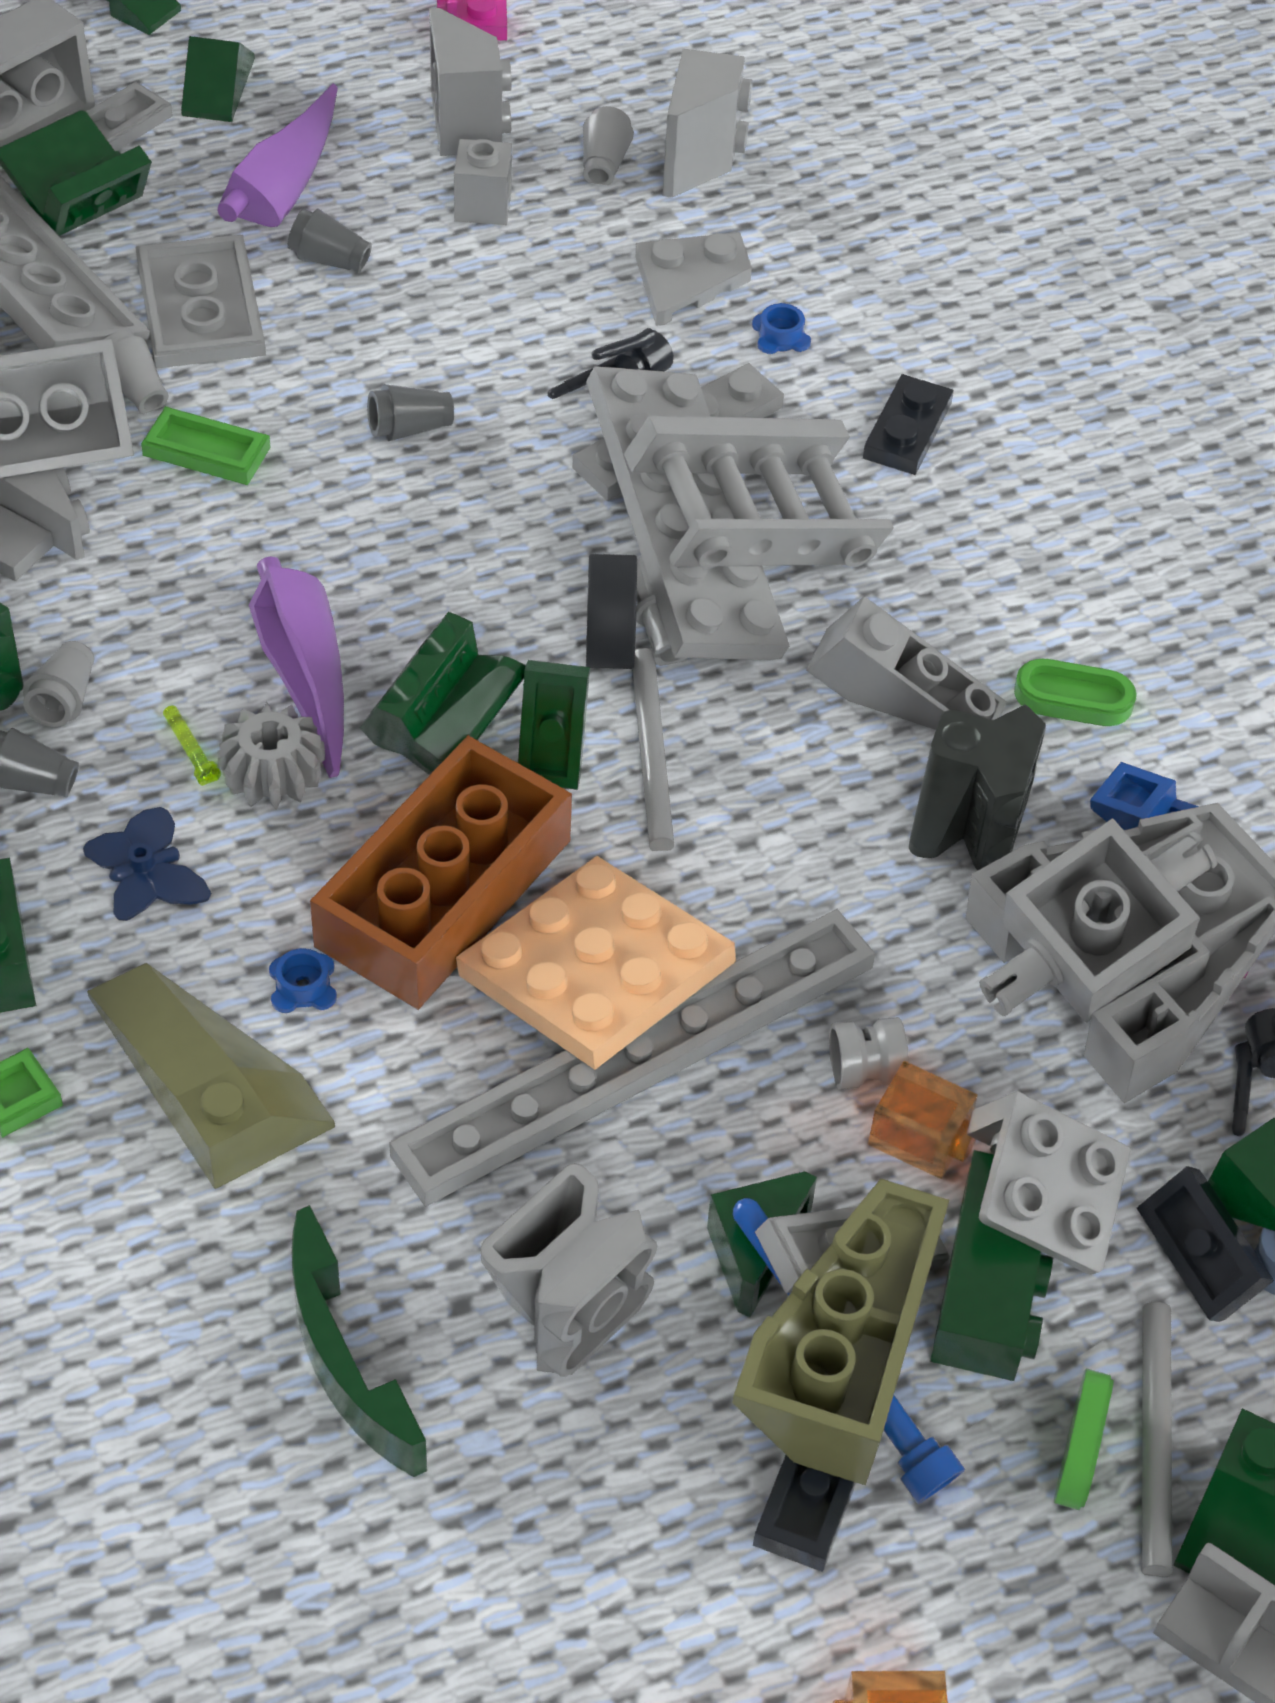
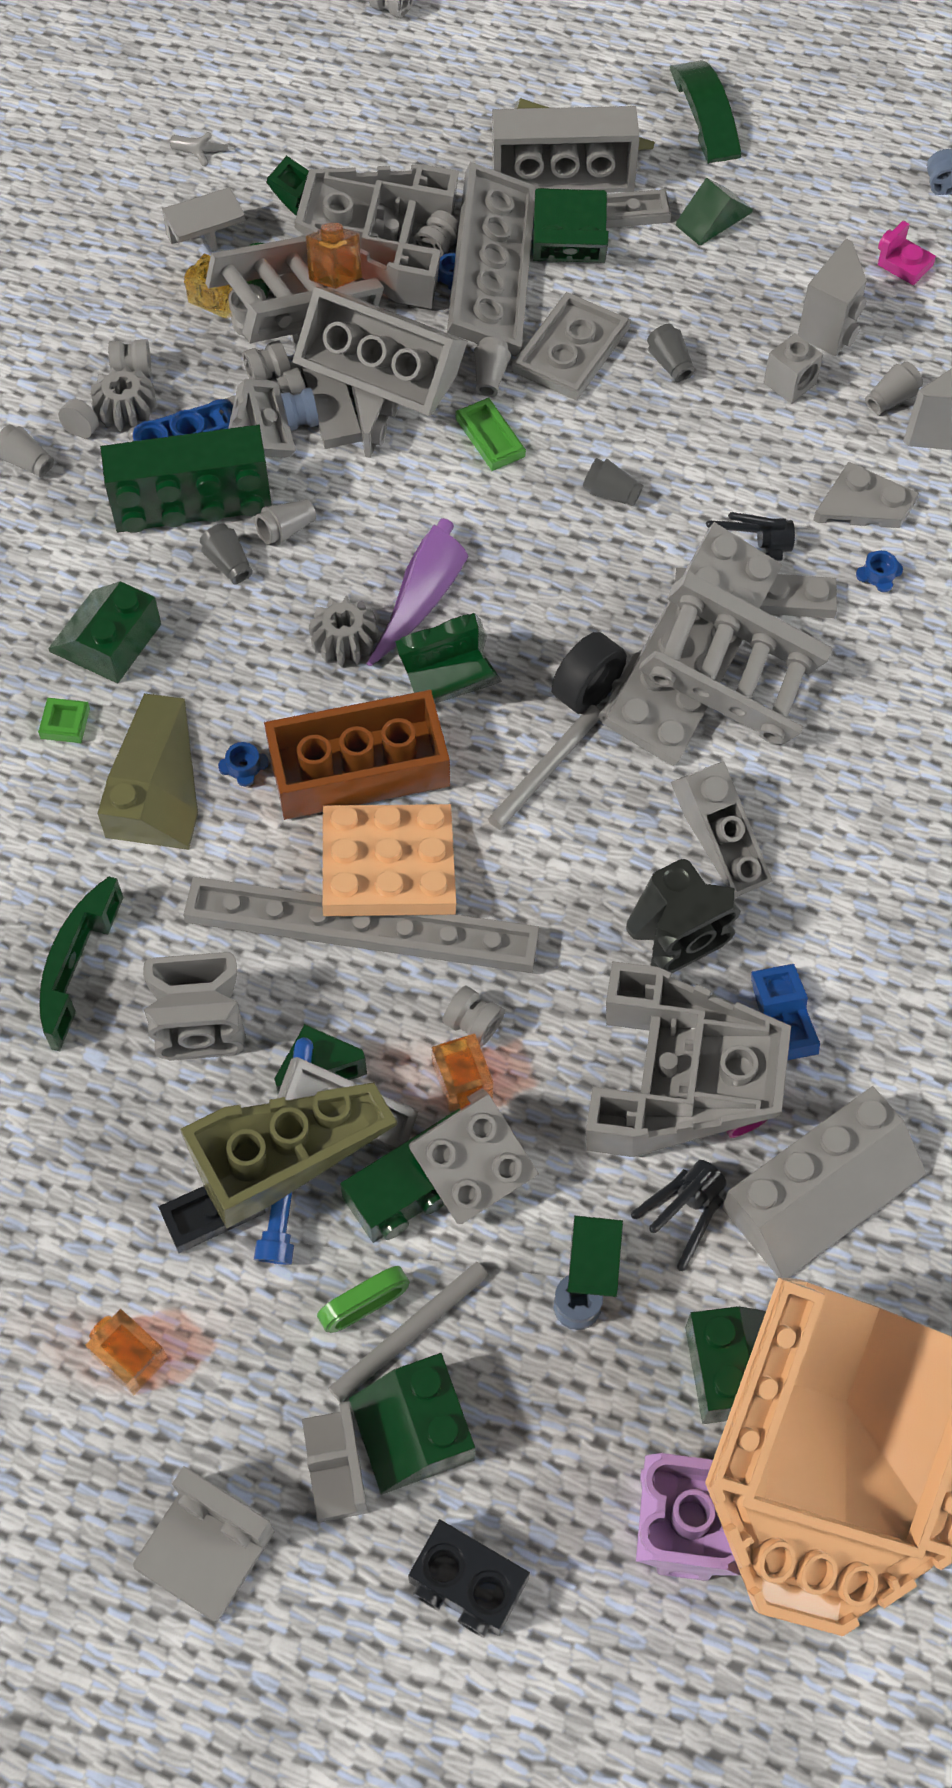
camera: 45 degrees right, 10 degrees up
(144, 865) = (232, 646): dark blue piece -> none
(205, 770) = (318, 596): clear neon green piece -> none
(279, 167) = (688, 290): medium lavender piece -> none
(554, 721) = (489, 714): dark green plate -> none
(908, 424) = (895, 677): black plate -> none
(1075, 692) = (817, 905): bright green tile -> none
(1103, 881) = (615, 1019): light grey brick -> none
(1204, 1244) = (537, 1257): black plate -> none

